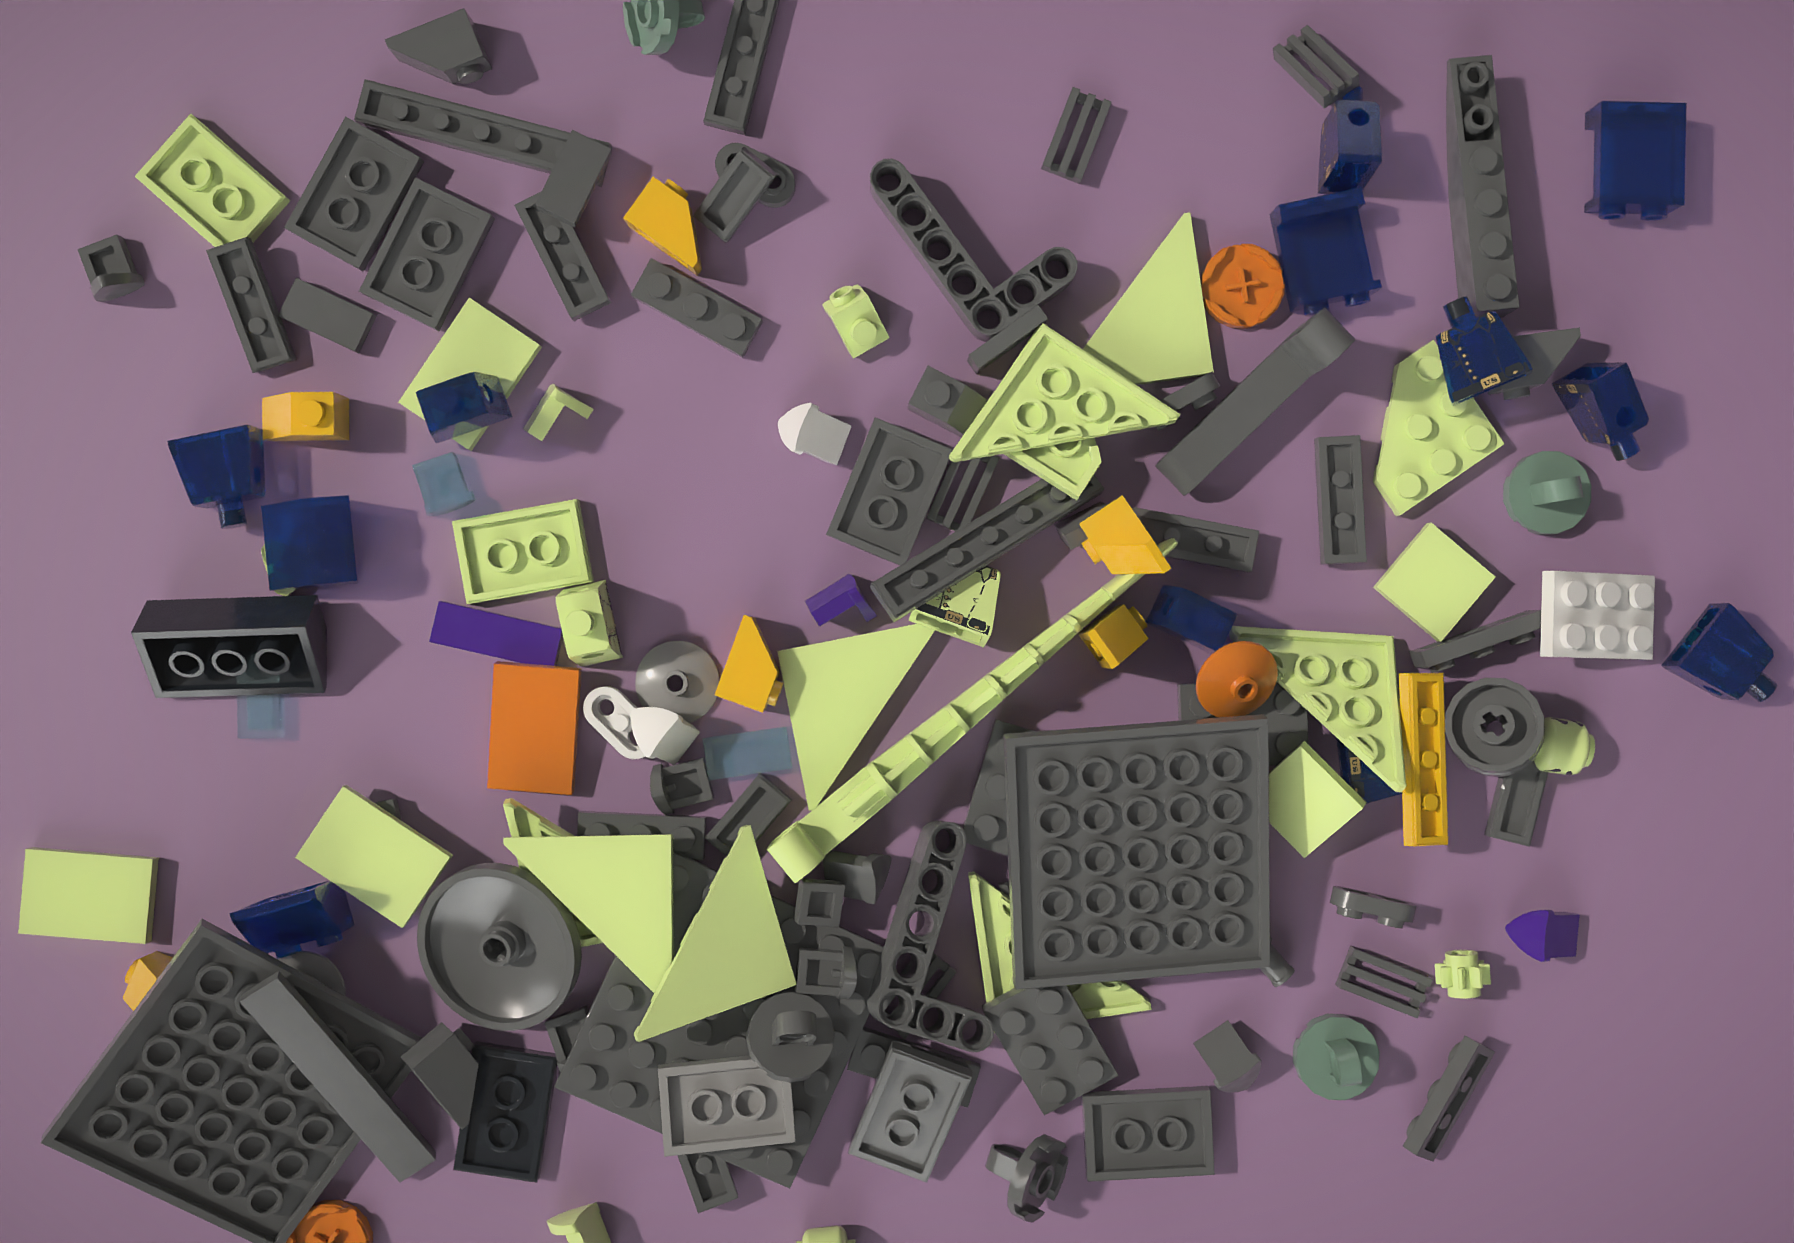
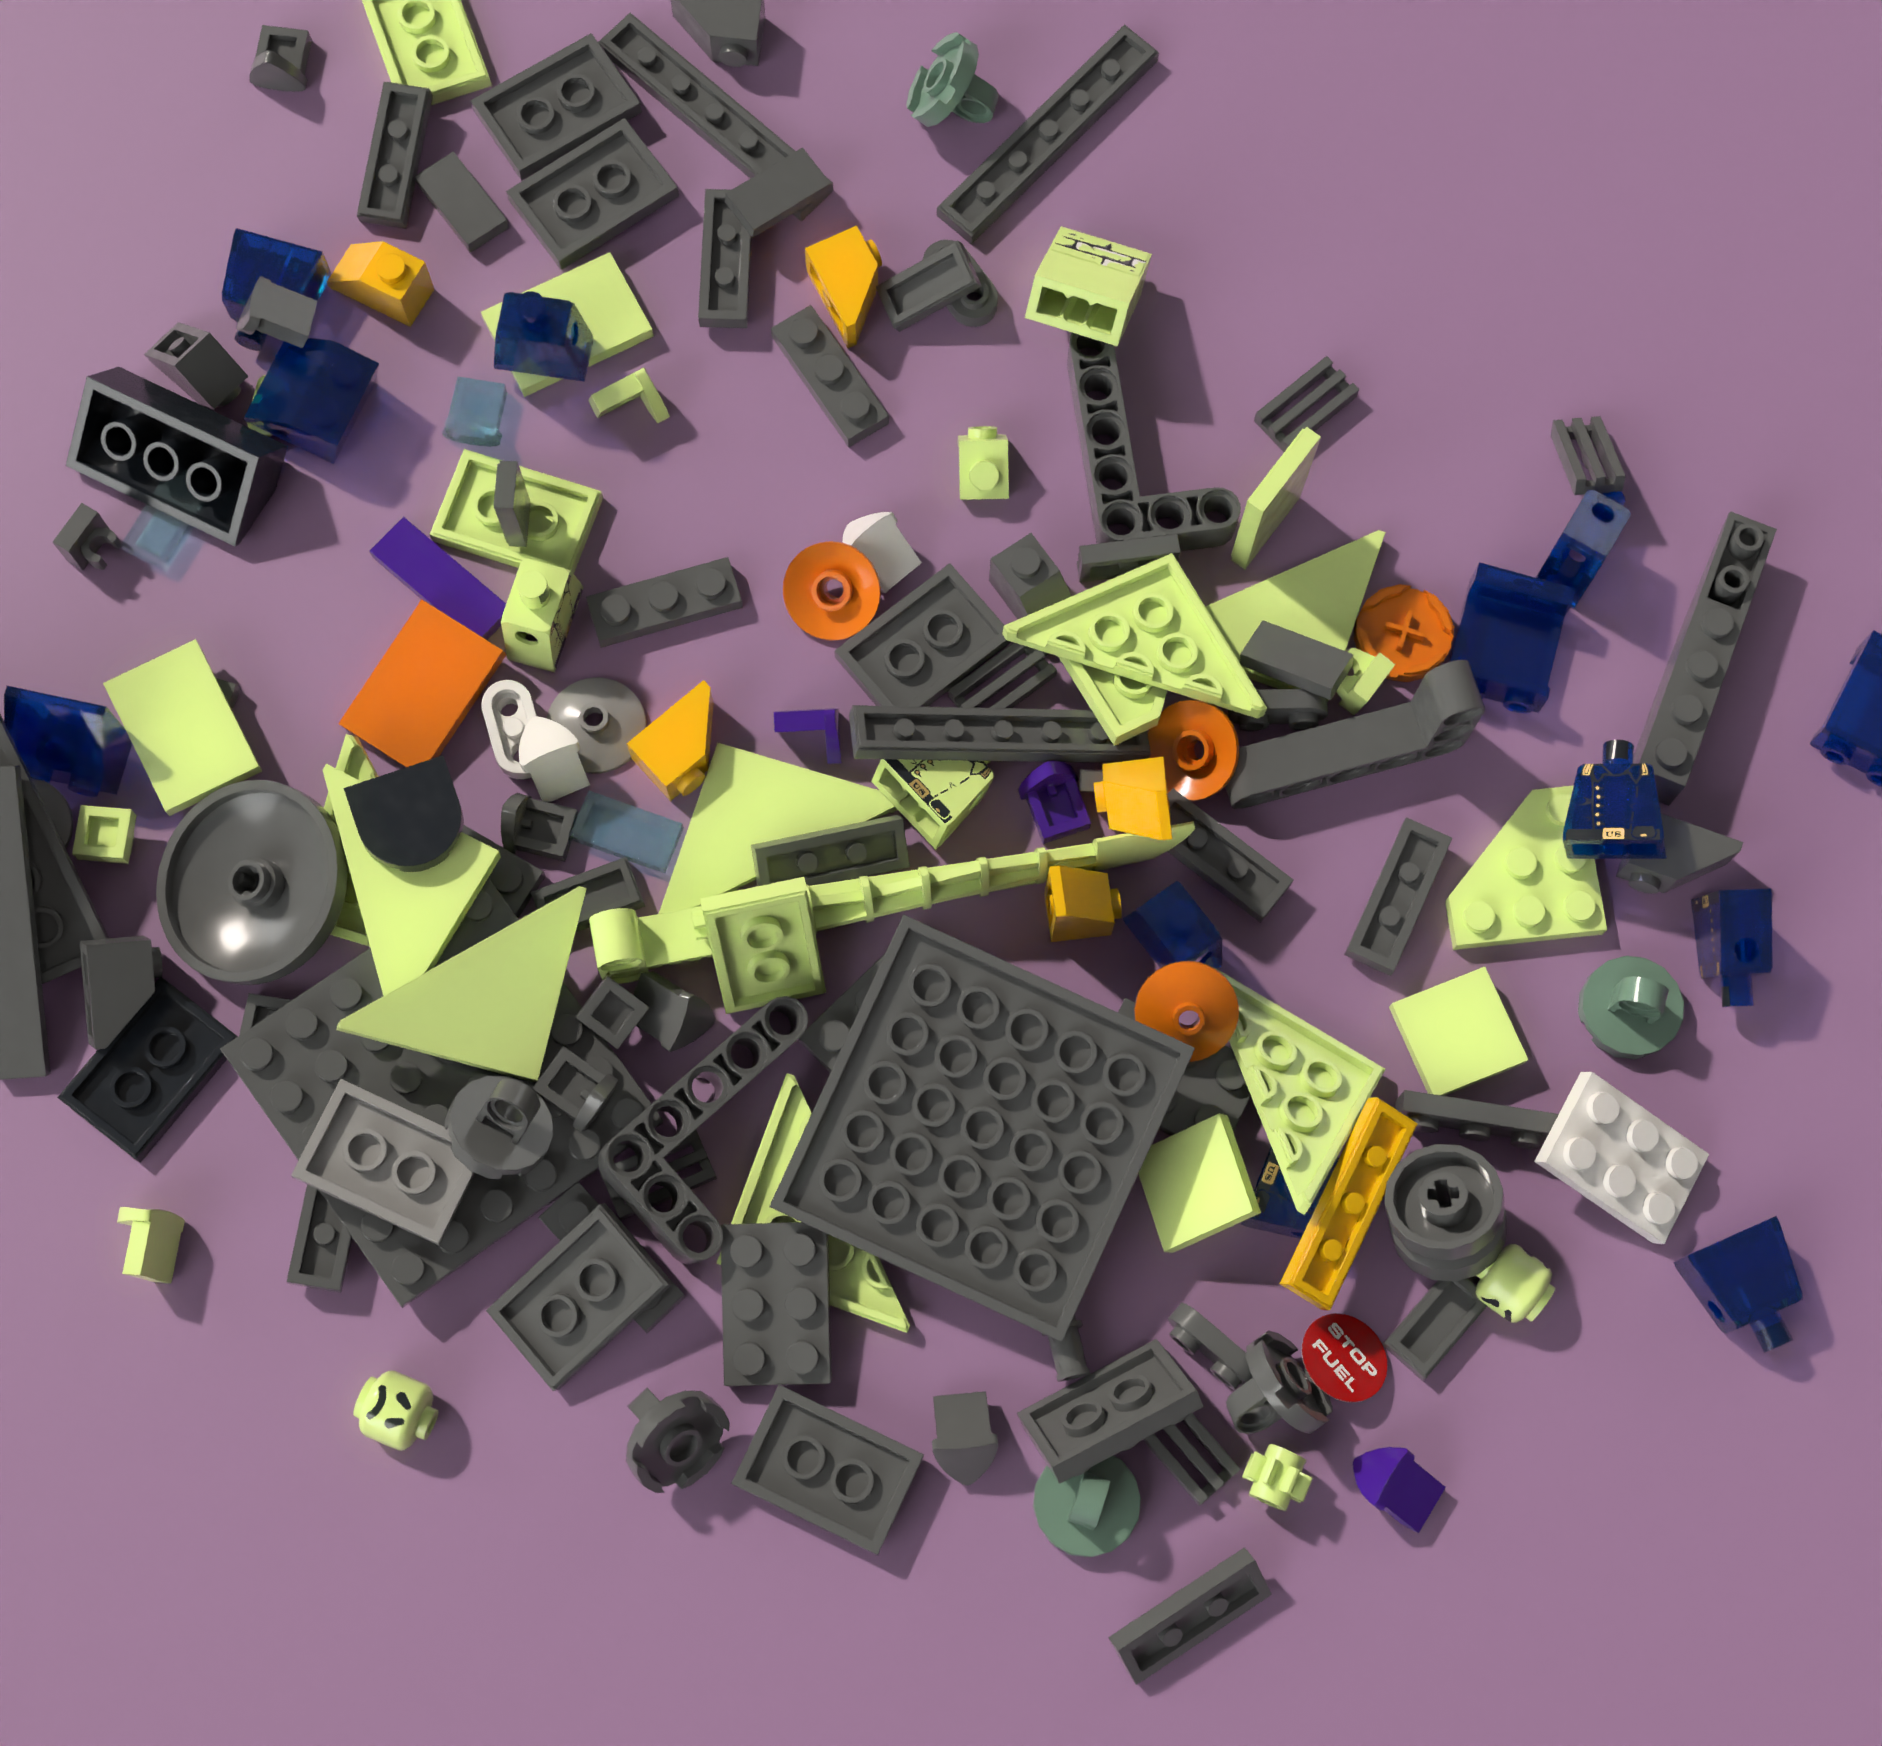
camera: 30 degrees right, 15 degrees down
(205, 566) = (198, 365): none -> dark grey slope
(206, 749) = (83, 538): none -> dark grey tile
(246, 498) = (278, 313): none -> dark grey tile
(368, 968) = (104, 834): none -> yellowish green tile
(520, 557) = (512, 503): none -> dark grey tile
(590, 847) = (408, 815): none -> black tile
(673, 560) = (664, 602): none -> dark grey plate
(801, 503) = (812, 604): none -> orange dish
(863, 131) = (1088, 286): none -> yellowish green brick
(904, 799) = (763, 944): none -> yellowish green tile
(910, 696) = (834, 853): none -> dark grey plate
(1051, 561) = (1055, 801): none -> dark purple tile
(1102, 239) = (1275, 497): none -> yellowish green tile
(1139, 486) = (1175, 737): none -> orange dish
(1179, 359) = (1296, 659): none -> dark grey tile
(1236, 347) = (1367, 677): none -> yellowish green tile
(1326, 995) = (1109, 1410): none -> dark grey plate
(1438, 912) = (1277, 1390): none -> dark grey tile
(1467, 864) = (1344, 1357): none -> red sticker

